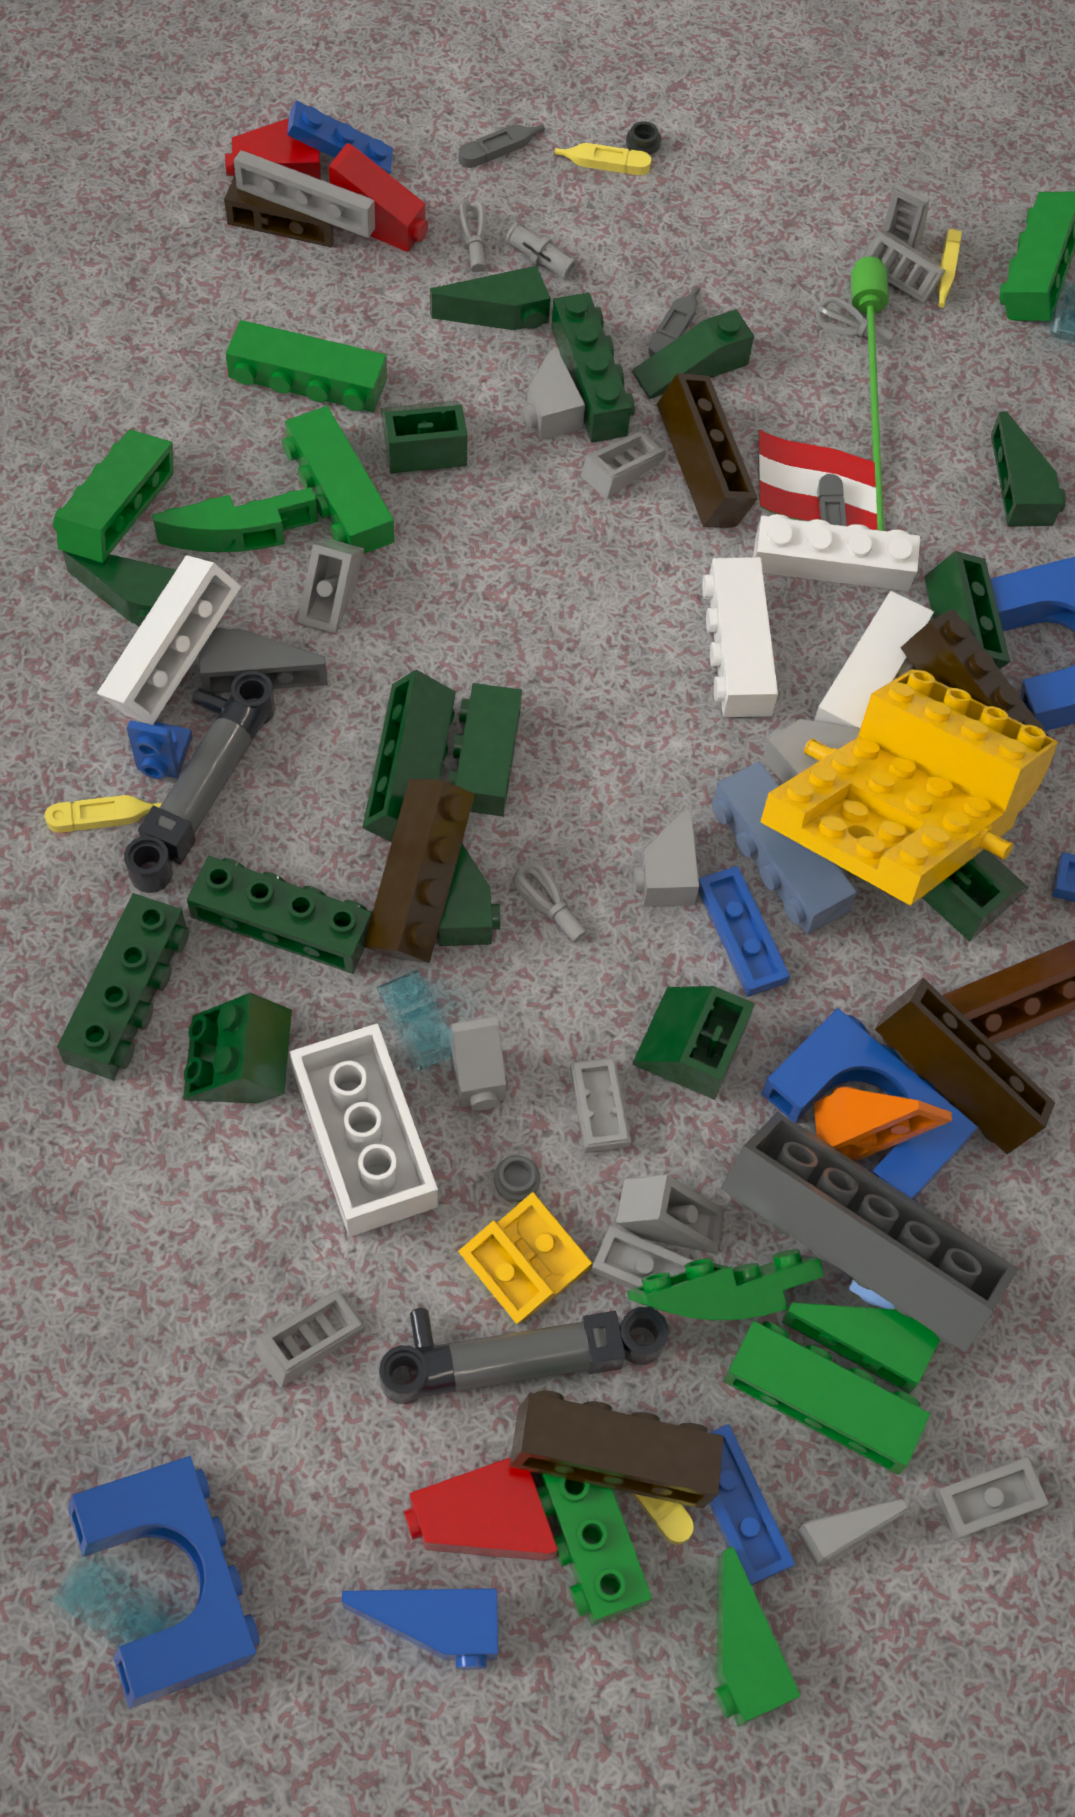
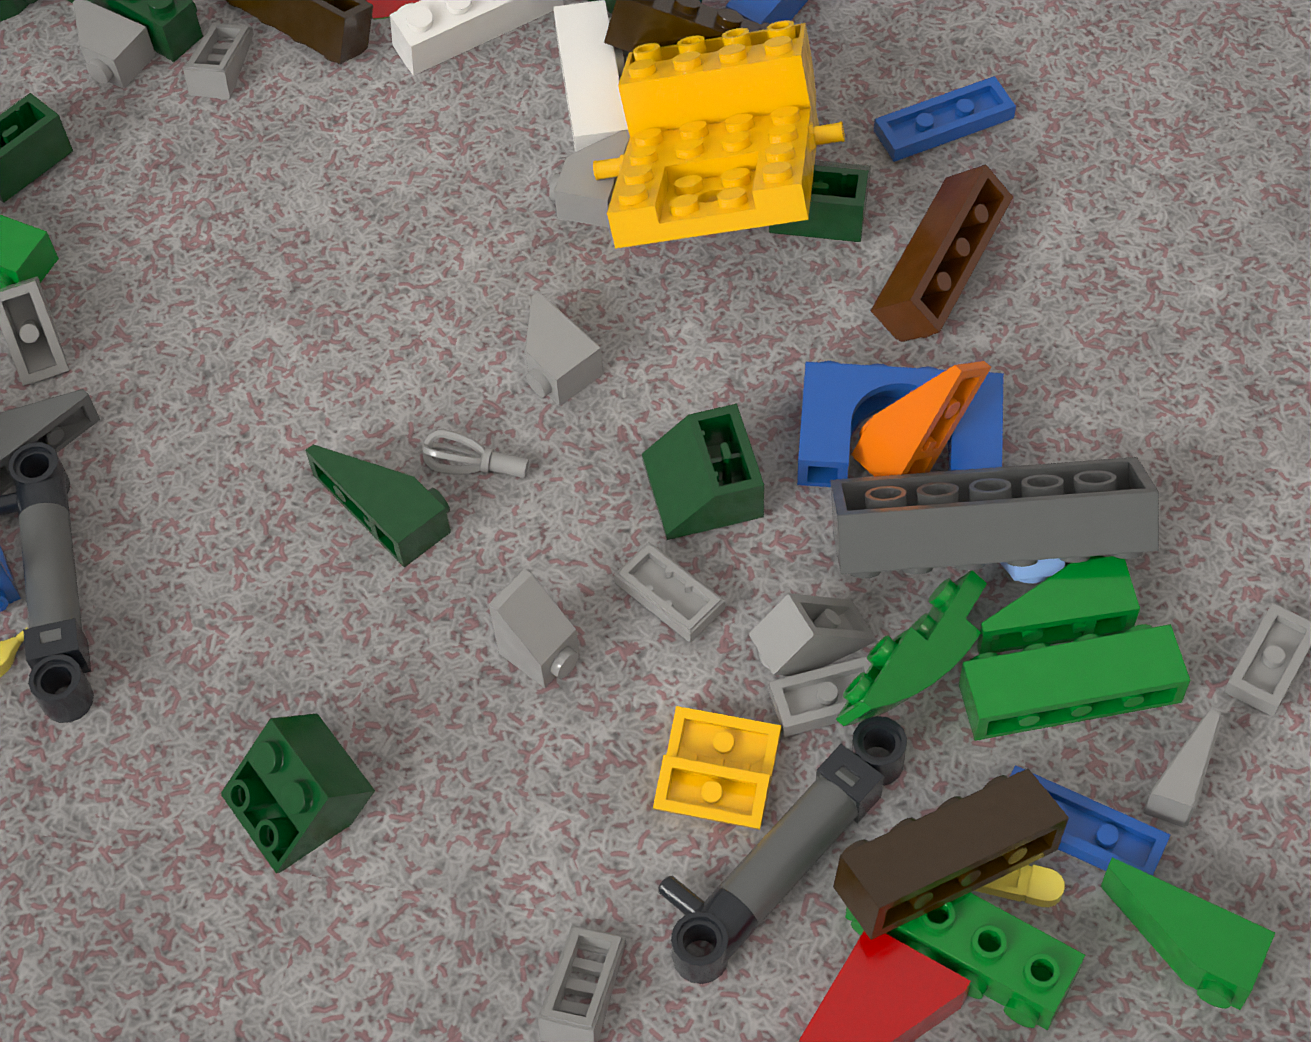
camera: 30 degrees left, 5 degrees down
(123, 987) = (131, 814): dark green brick -> none
(280, 913) = (230, 641): dark green brick -> none
(364, 1130) = (478, 765): white brick -> none
(409, 746) = (241, 424): dark green brick -> none
(416, 1019) = (437, 641): clear light blue slope -> none
(419, 870) = (337, 504): dark brown brick -> none
(487, 746) = (304, 370): dark green brick -> none
(516, 1178) = (650, 707): dark grey plate -> none
(741, 636) = (455, 127): white brick -> none
(743, 931) = (667, 363): blue plate -> none
(807, 883) = (653, 276): sand blue brick -> none
(965, 1066) = (951, 330): dark brown brick -> none

